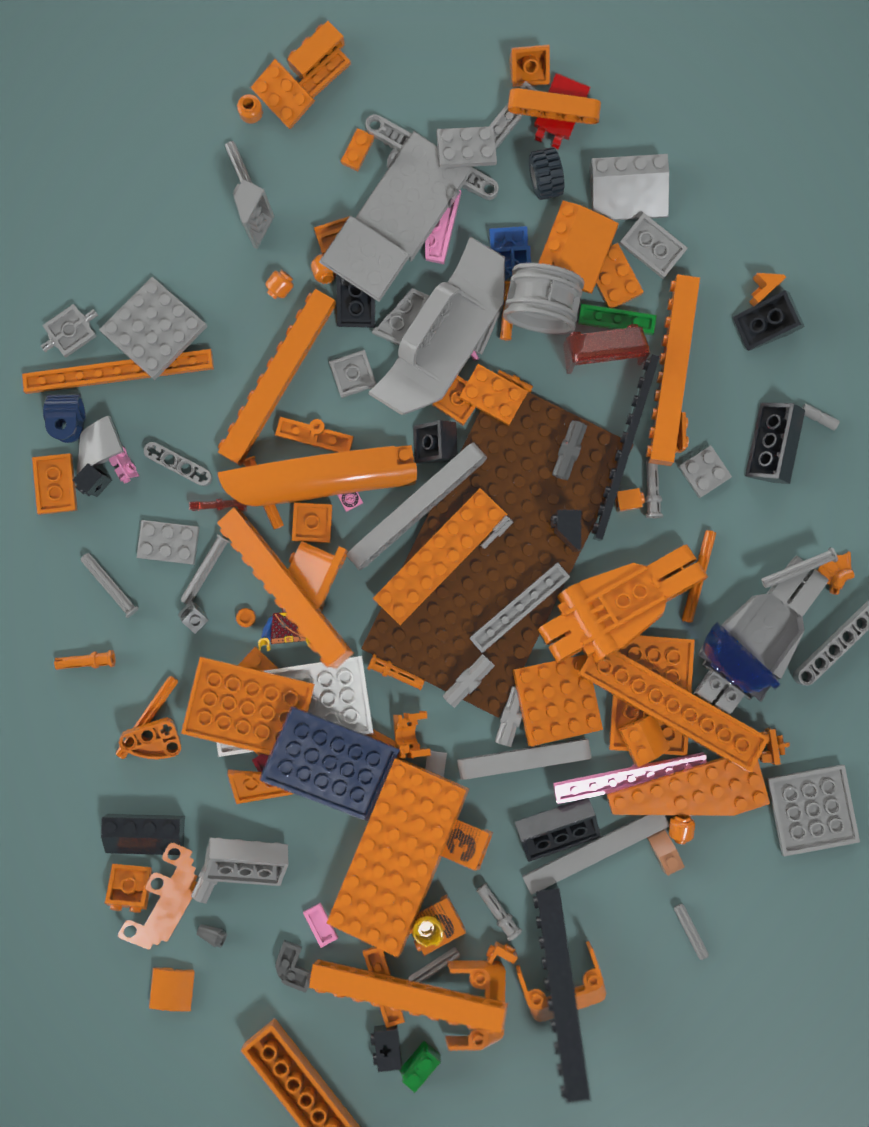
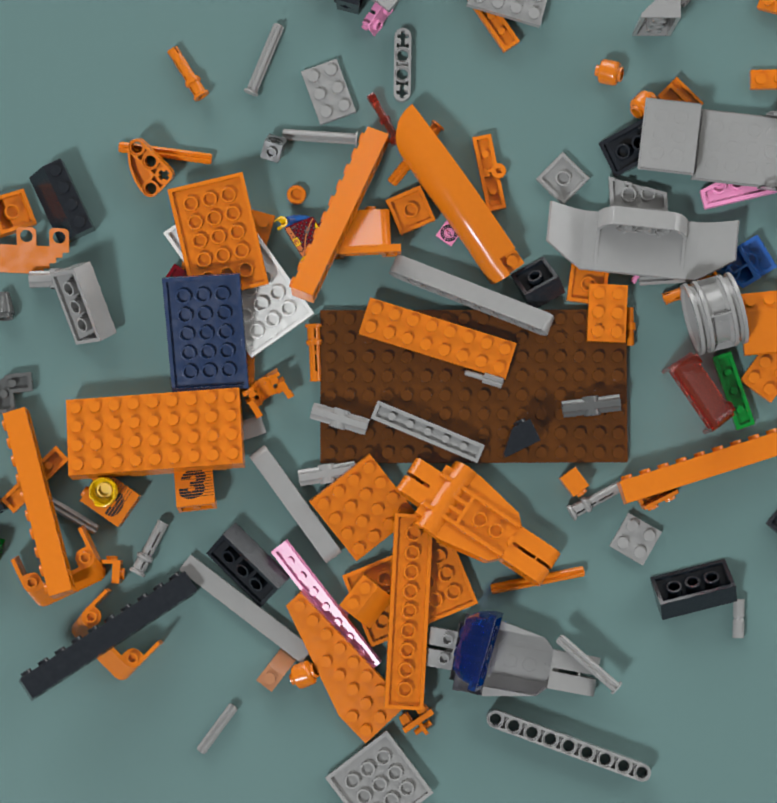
camera: 65 degrees right, 0 degrees up
(249, 788) = (149, 275): orange wing -> none
(277, 377) = (525, 113): orange brick -> none
(317, 921) = (56, 401): bright pink tile -> none
(622, 455) = (627, 452): black plate -> none
(837, 572) = (604, 703): orange arm -> none

